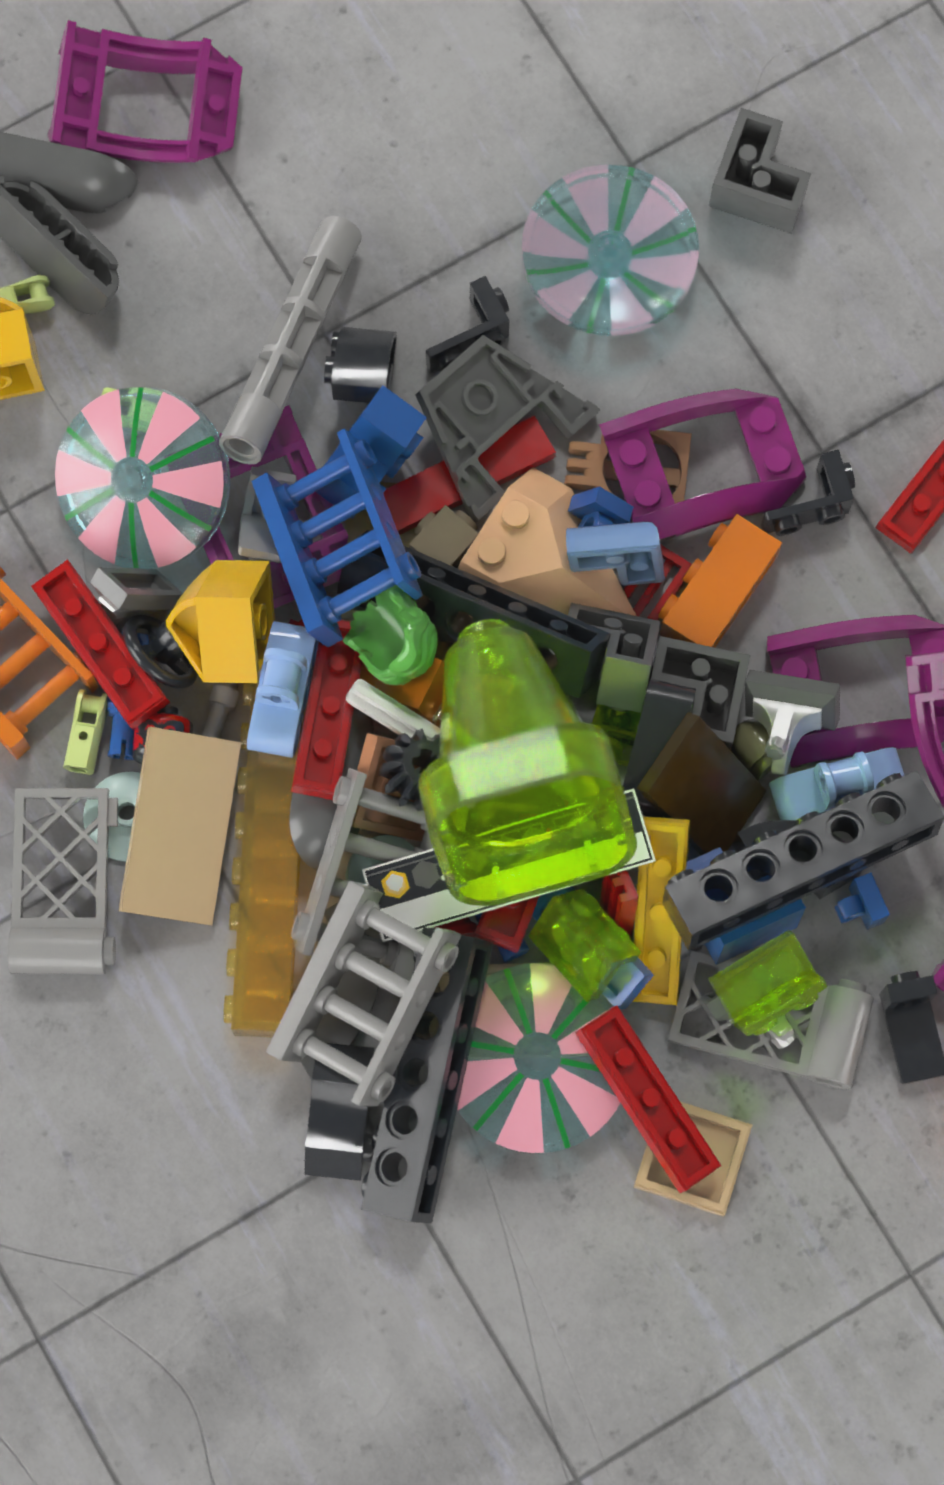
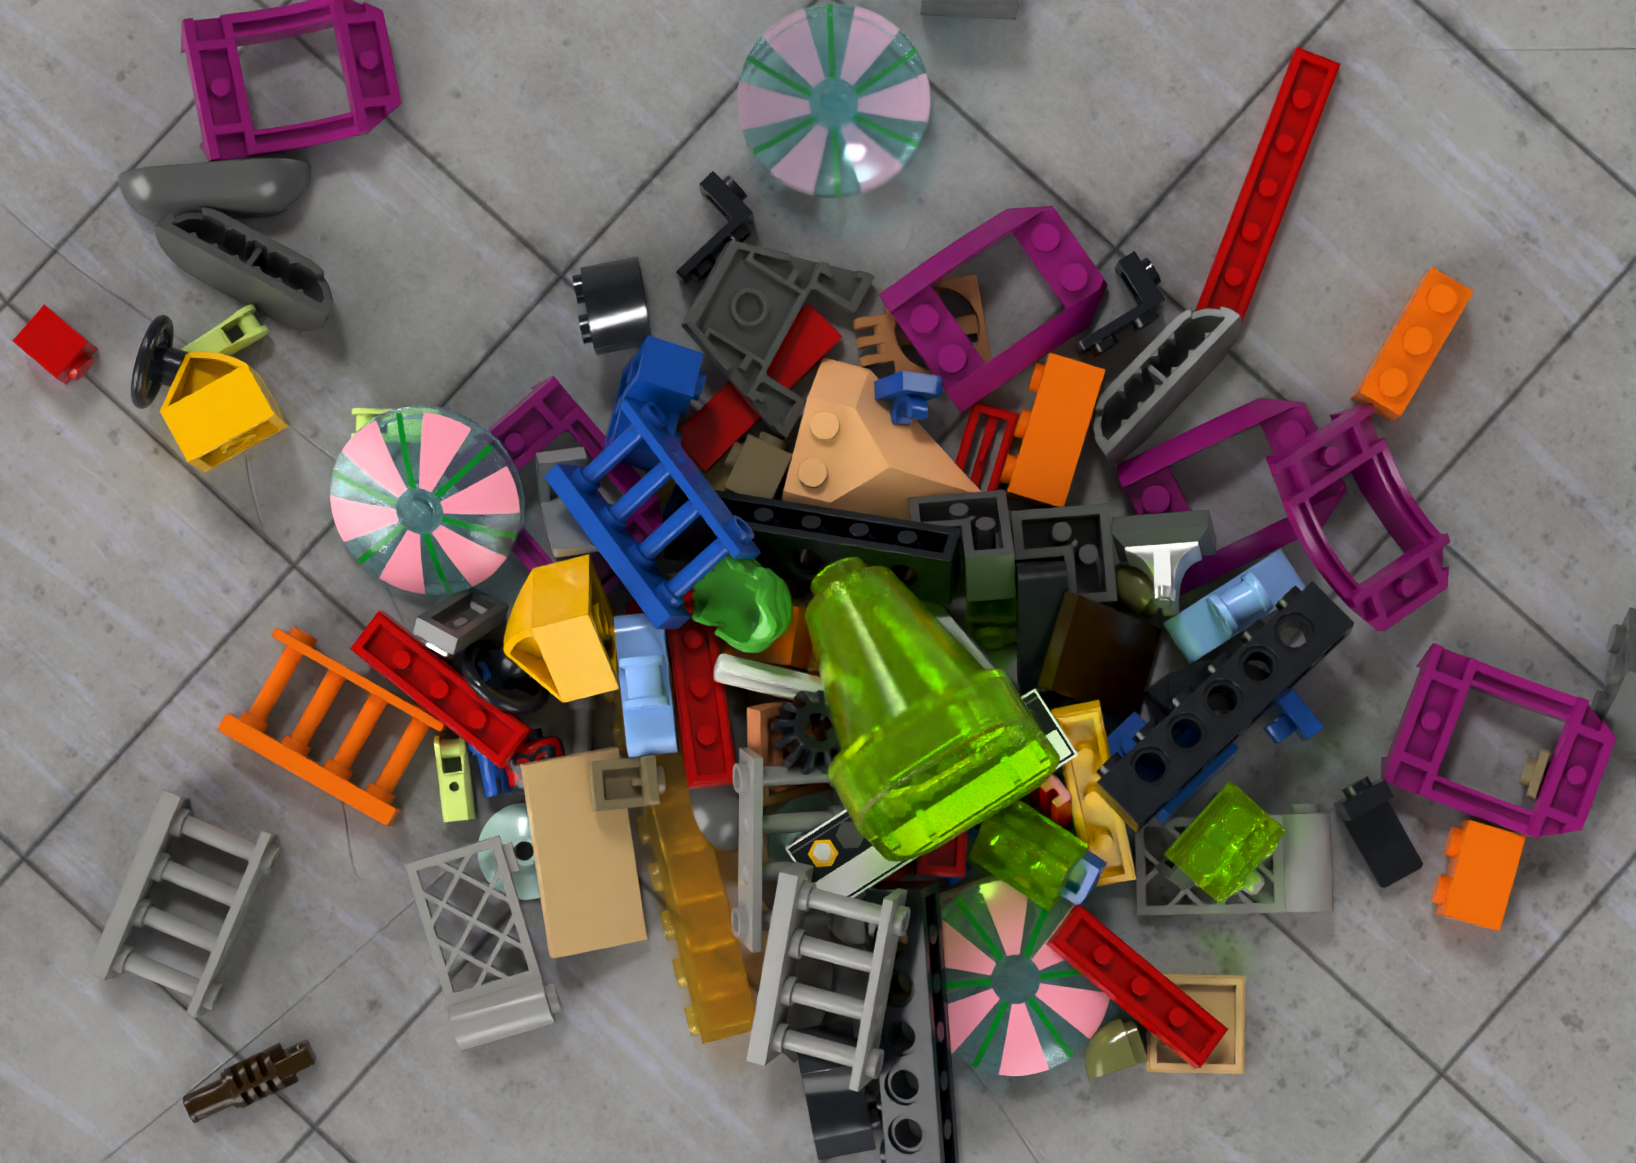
camera: 15 degrees left, 10 degrees up
(237, 771) = (626, 783): none -> dark tan bracket
(290, 340) = (533, 305): light grey piece -> none
(609, 1155) = (1114, 1048): none -> olive piece
(625, 546) = (951, 429): medium blue brick -> none
(832, 569) = (1162, 378): none -> dark grey brick

